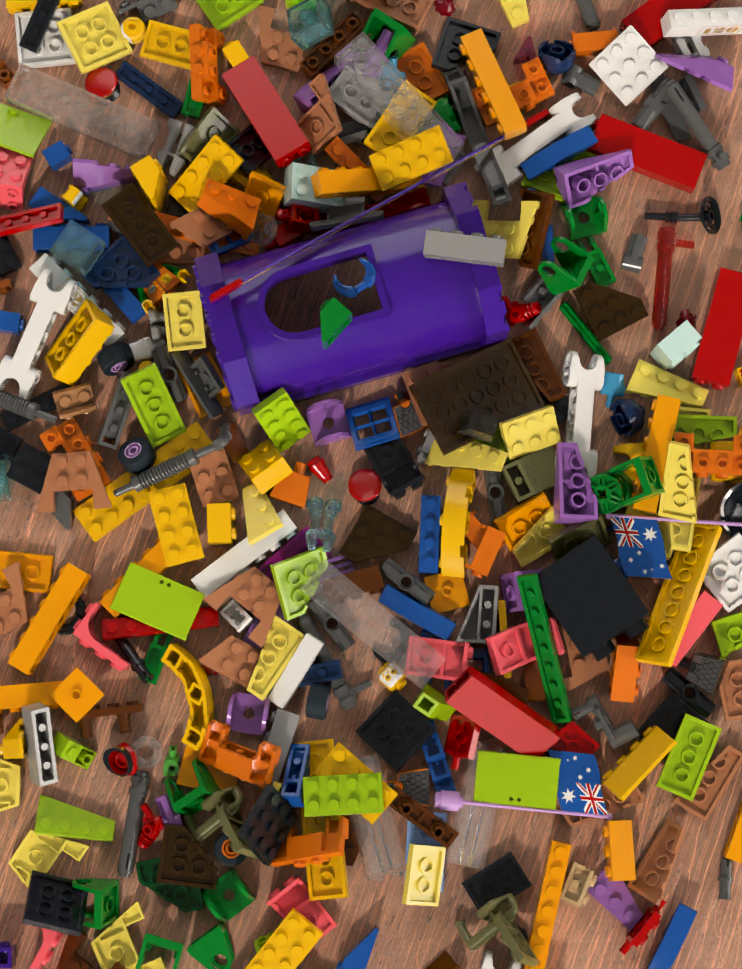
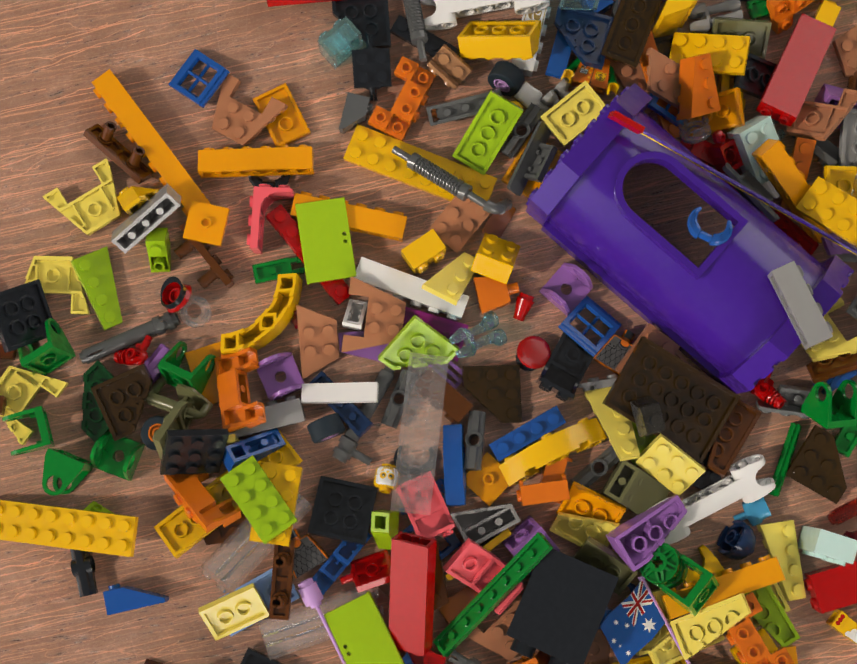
camera: 55 degrees right, 0 degrees up
(71, 473) = (387, 101): nougat wing -> none
(136, 455) = (437, 146): black wheel -> none
(136, 662) = (263, 256): black pin -> none
(171, 760) = (202, 336): bright green piece -> none
(176, 525) = (399, 215): yellow plate -> none
(274, 657) = (339, 368): light yellow wing -> none
(281, 420) = (543, 245): lime plate -> none
(296, 896) = (150, 512): coral bracket -> none
(334, 320) = (660, 231): green slope -> none

